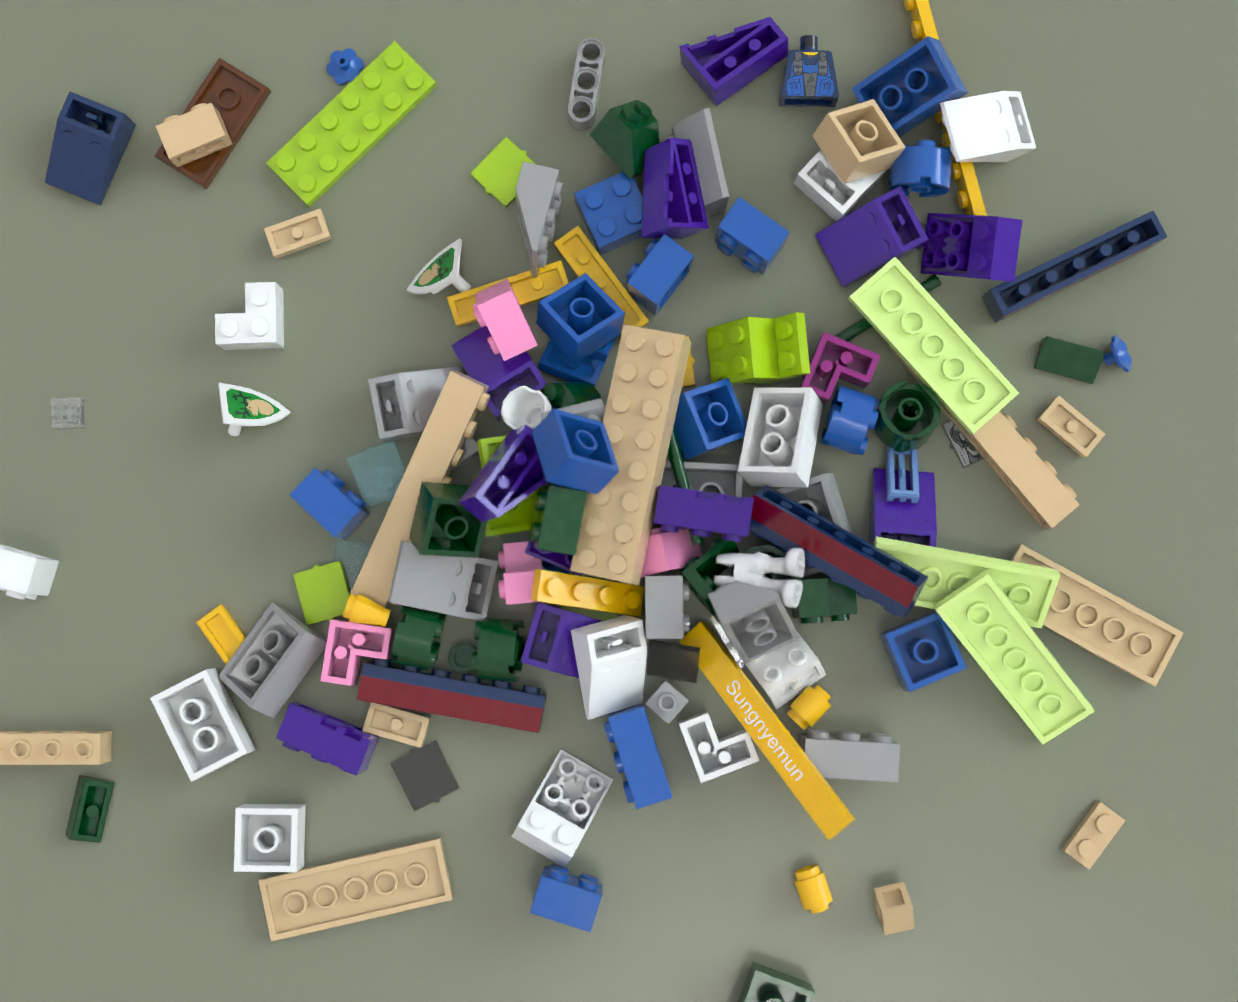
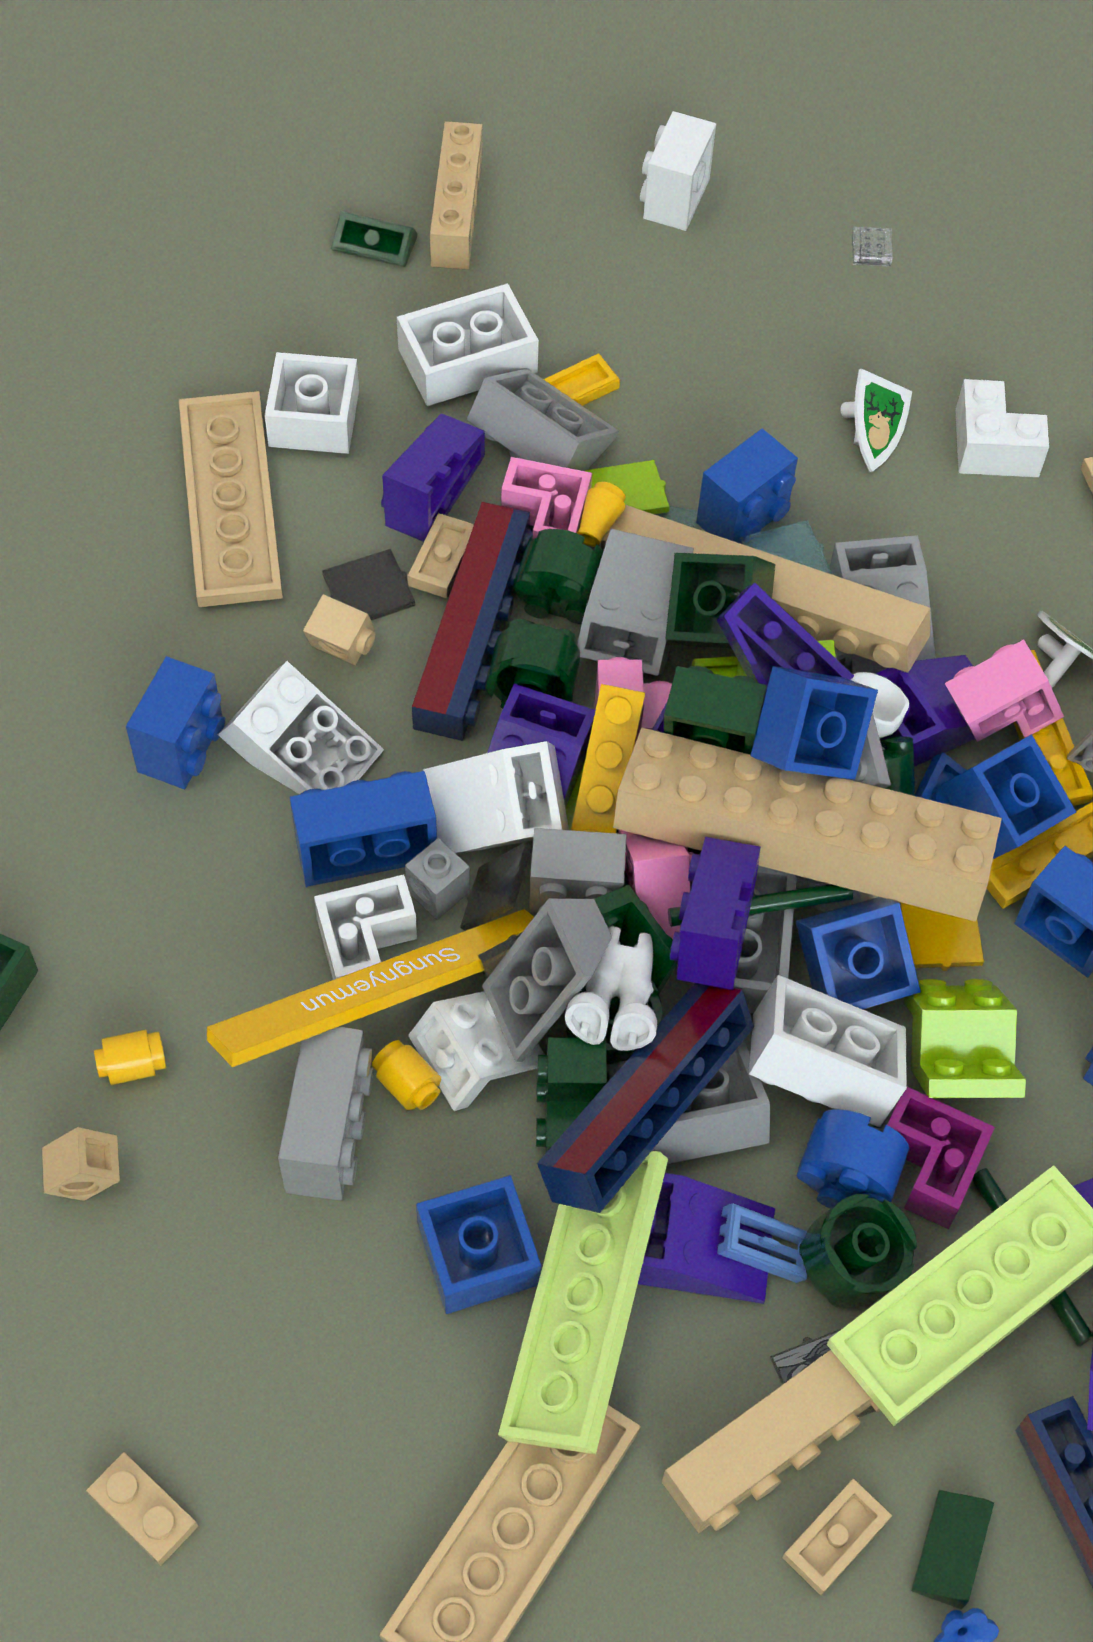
camera: 90 degrees right, 25 degrees down
(472, 791) = (340, 630): none -> tan brick
(1013, 657) = (452, 1379): yellowish green plate -> none

